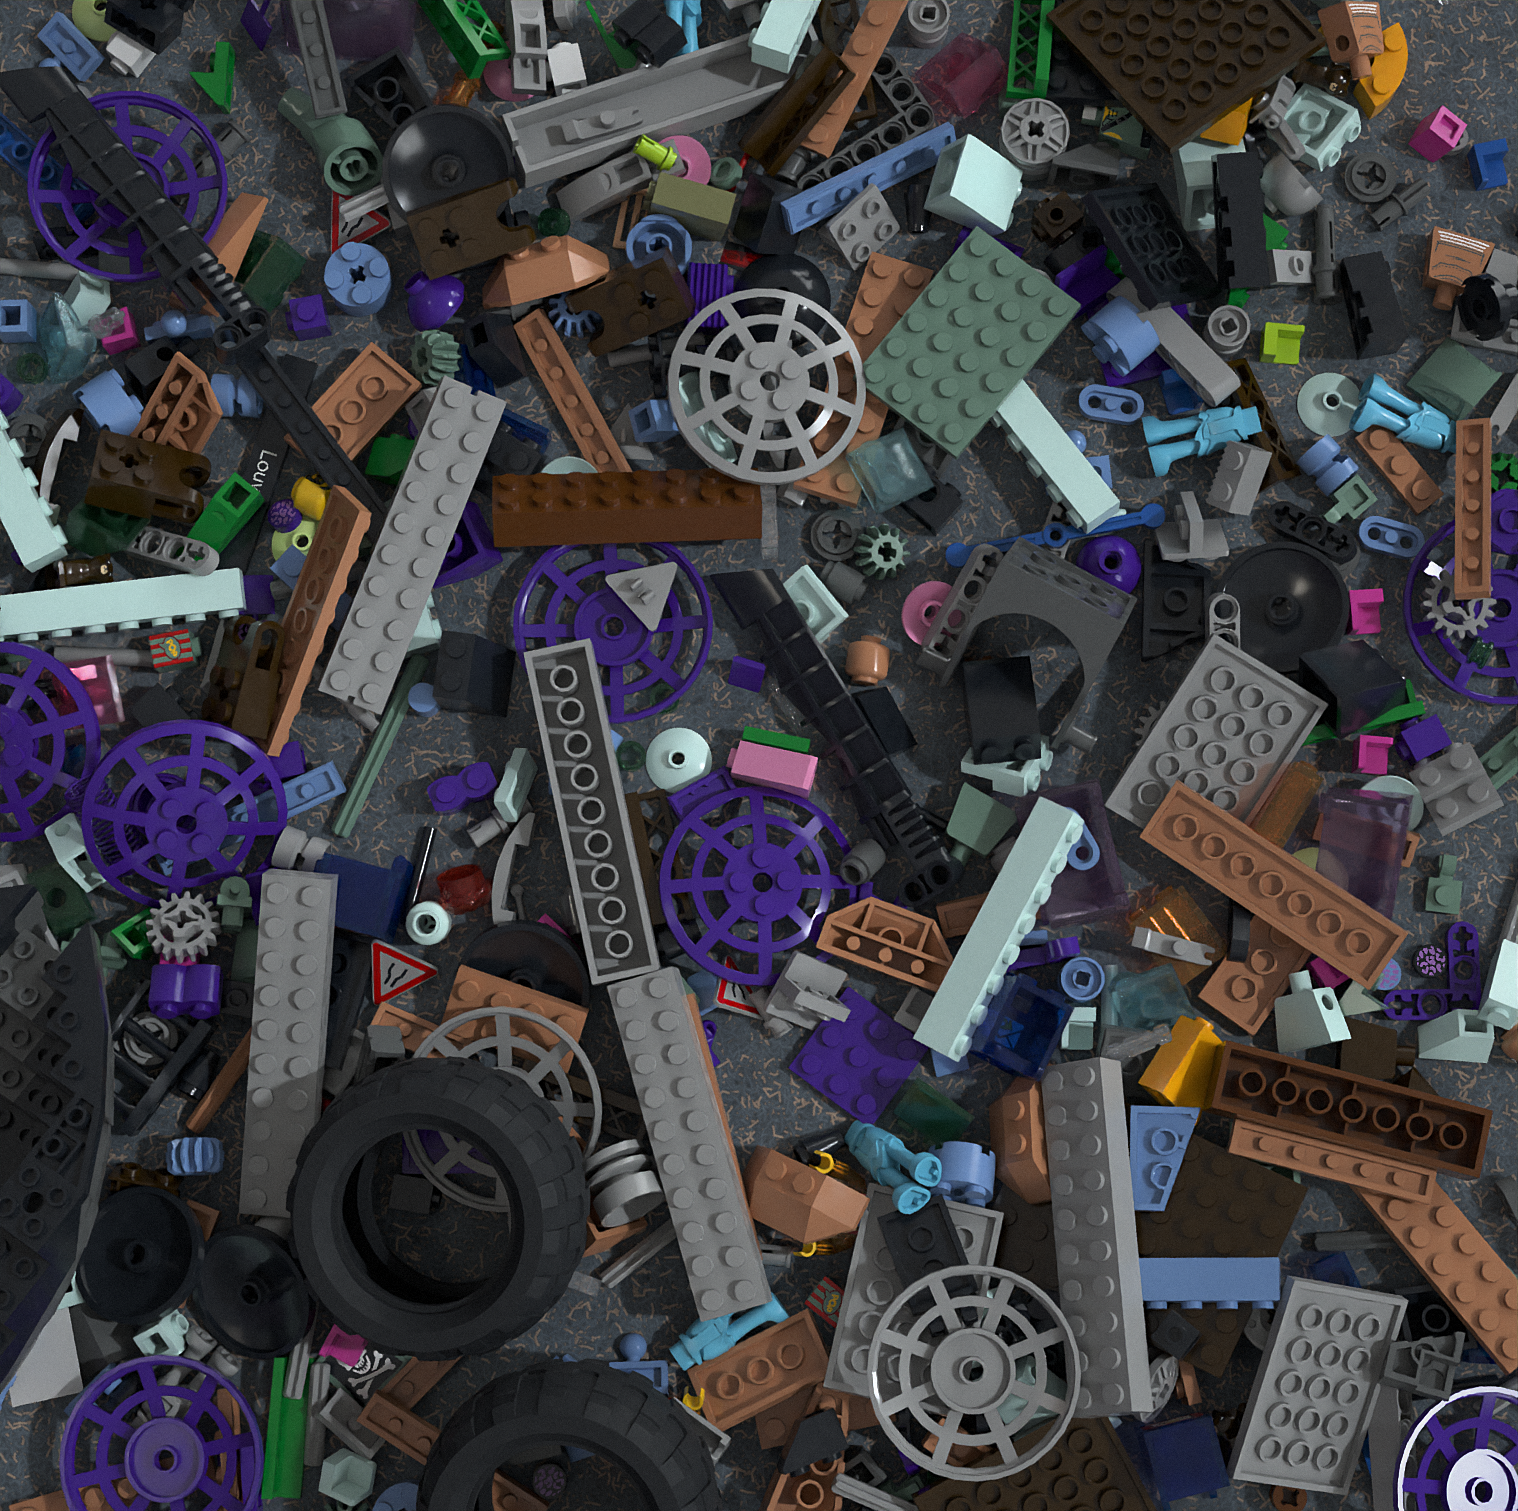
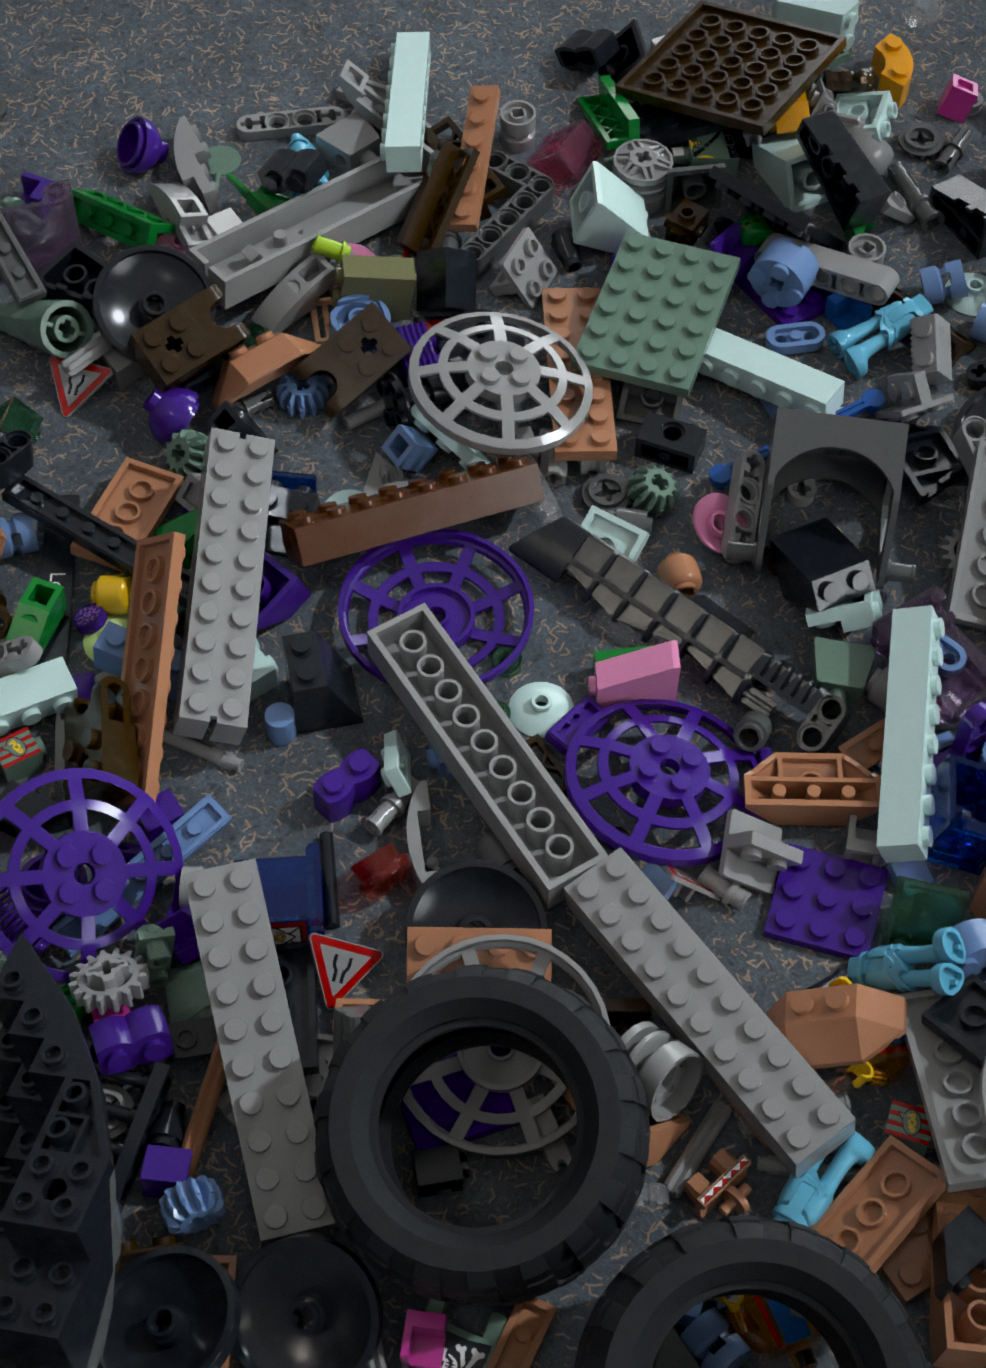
camera: 25 degrees left, 25 degrees down
(183, 1114) = (163, 1168): none -> dark purple panel
(308, 317) = (60, 459): dark purple brick -> none
(354, 262) = (97, 419): medium blue brick -> none
(379, 747) = (249, 779): sand green axle -> none
(422, 933) = (357, 909): light aqua head -> none
(570, 393) = (316, 449): nougat plate -> none
(631, 1297) = (730, 1173): none -> nougat hips
(645, 590) = (454, 572): light grey piece -> none
(746, 674) = (575, 617): dark purple slope -> none
(881, 170) = (490, 250): medium blue tile -> none
(889, 470) = (633, 418): clear light blue slope -> none
(1280, 343) = (909, 257): lime panel -> none
(1285, 386) = (932, 282): none -> medium blue wheel
(1353, 34) = (862, 40): nougat torso -> none

